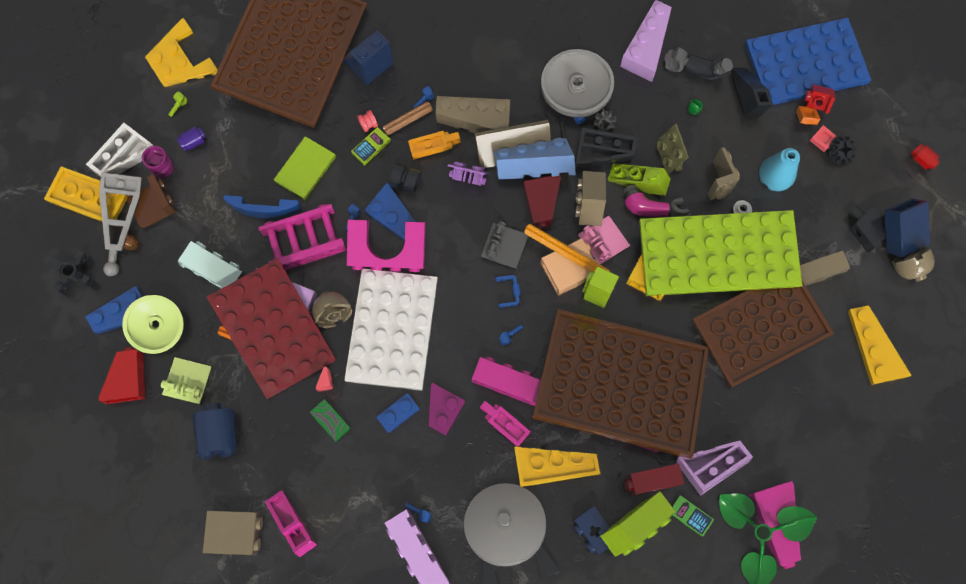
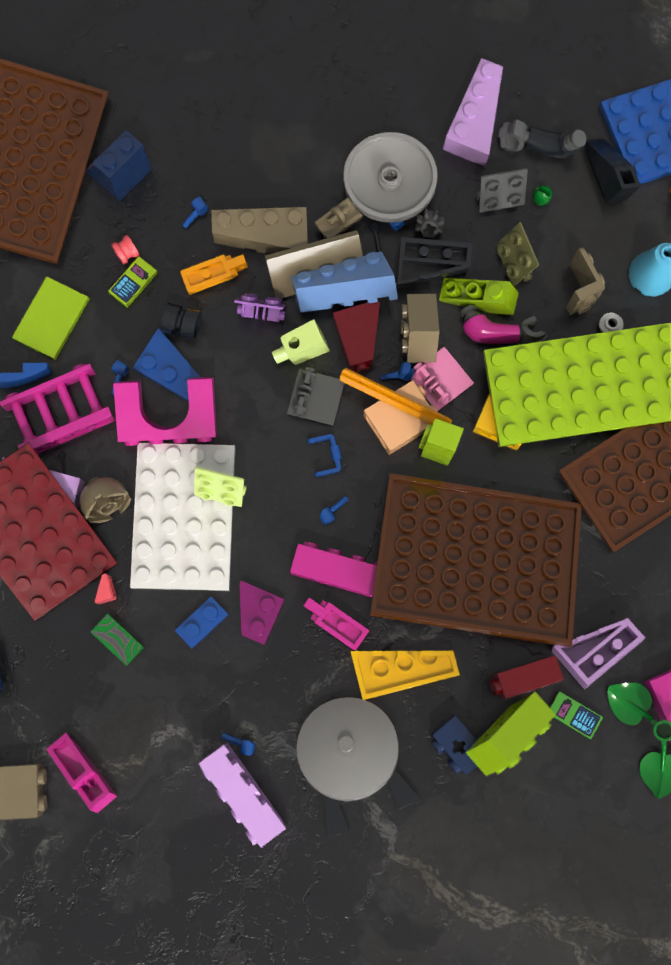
camera: 10 degrees left, 5 degrees up
(407, 118) = (176, 241): medium nougat axle -> none
(422, 306) = (219, 487): none -> yellowish green hinge
(497, 203) = (309, 342): none -> yellowish green torso
(534, 111) = (338, 219): none -> dark tan hips
(575, 233) = (405, 373): none -> blue hand
(664, 99) = (502, 190): none -> dark grey hinge

